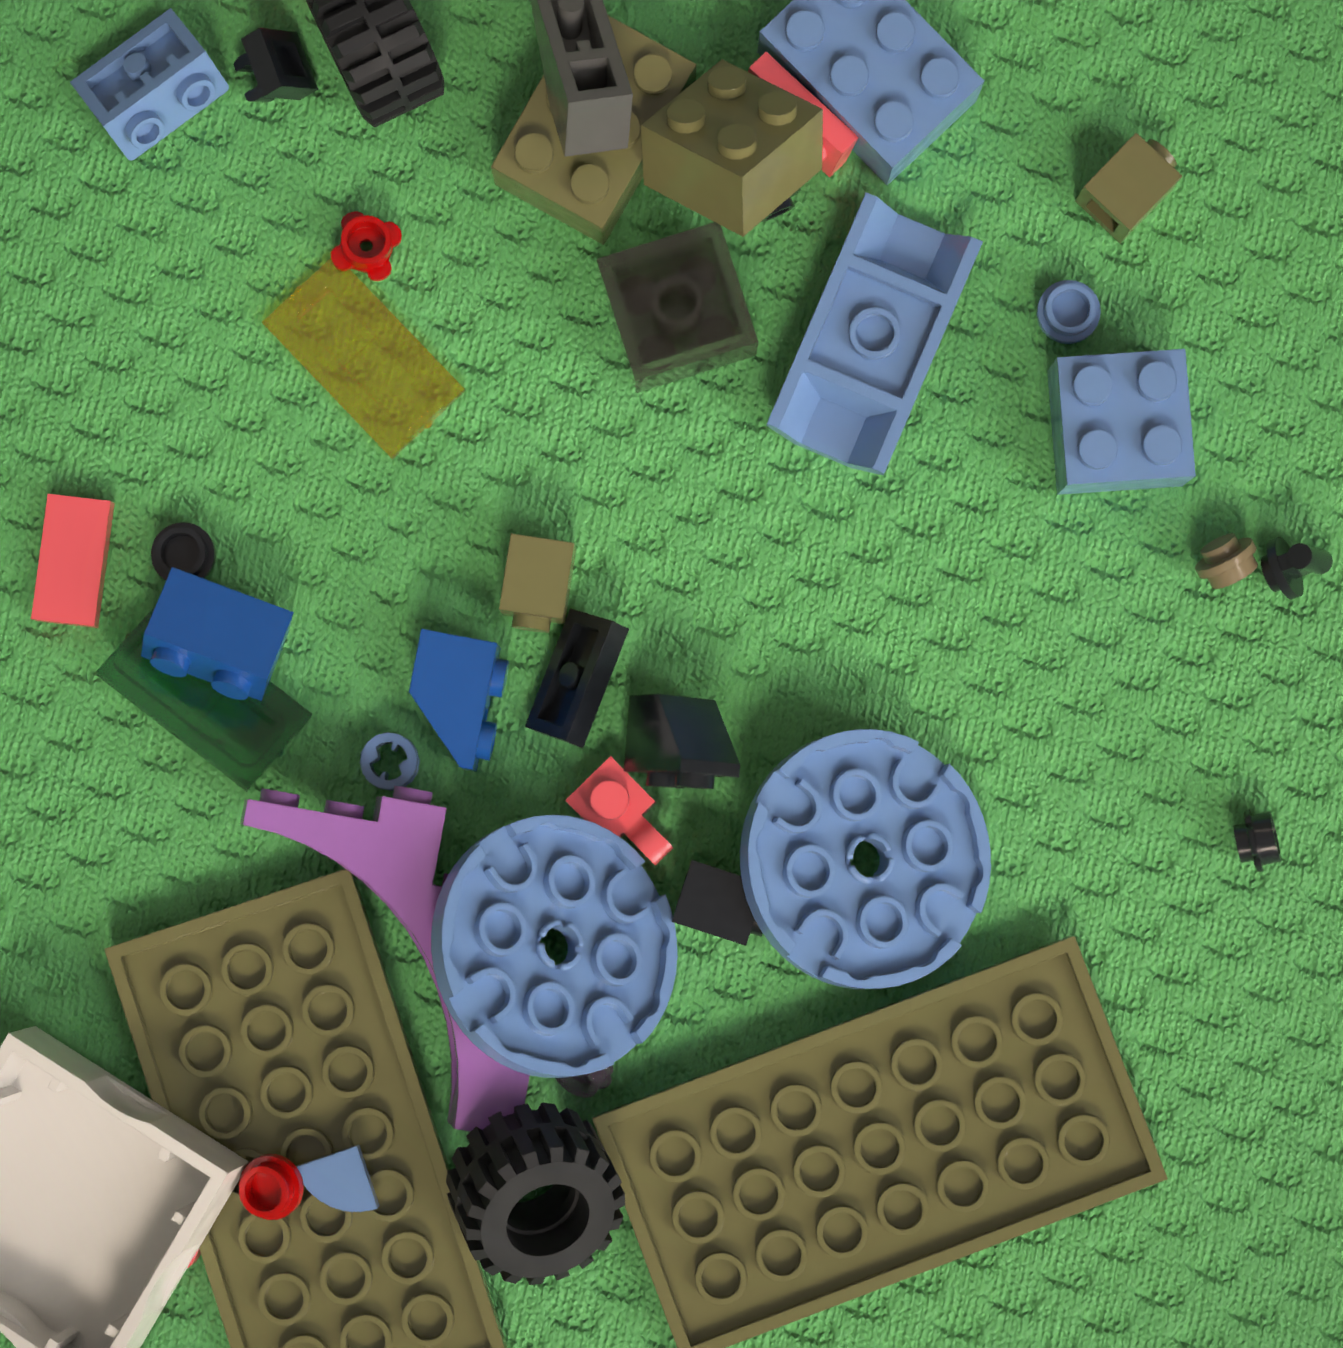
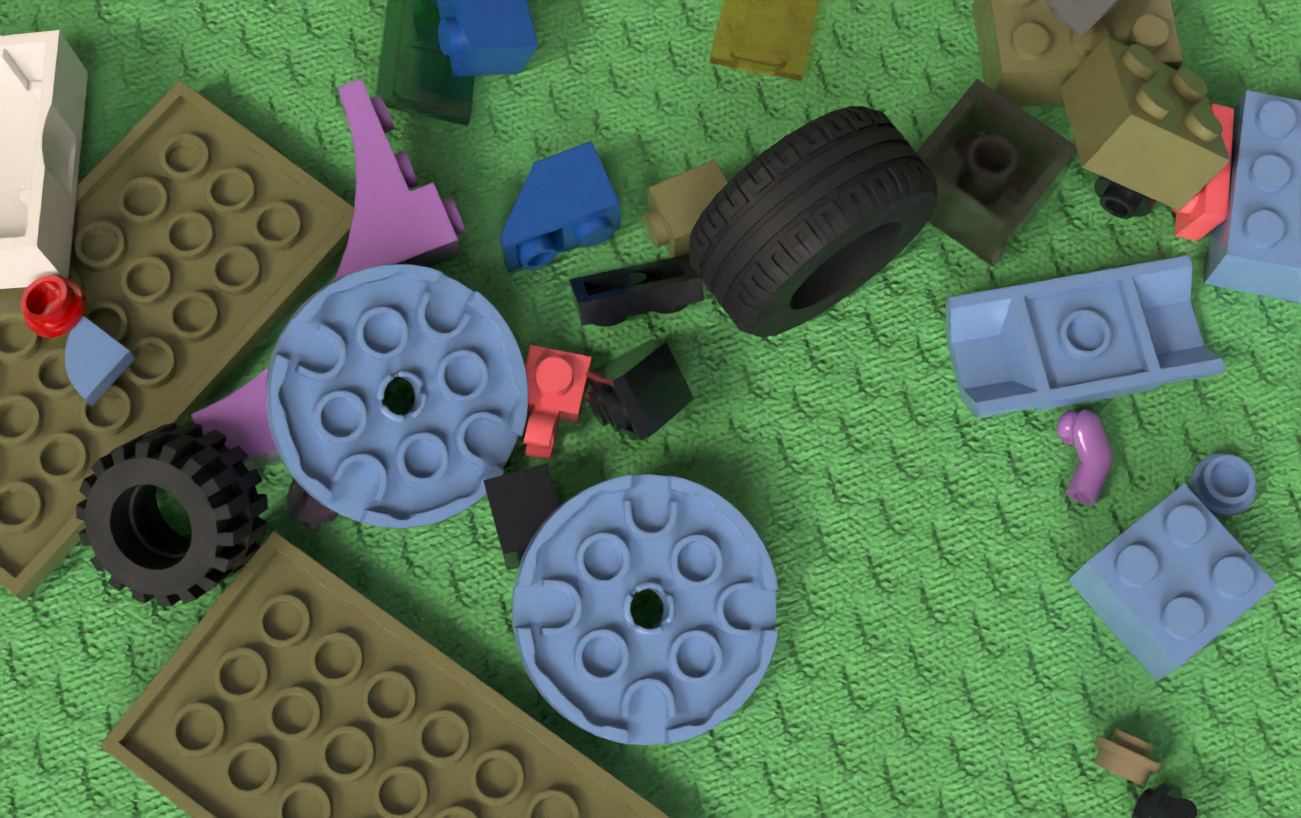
camera: 55 degrees right, 15 degrees down
(371, 755) = (467, 182): medium blue bush -> none
(646, 504) = (811, 220): none -> black tyre
(968, 395) = (1094, 453): none -> medium lavender arm

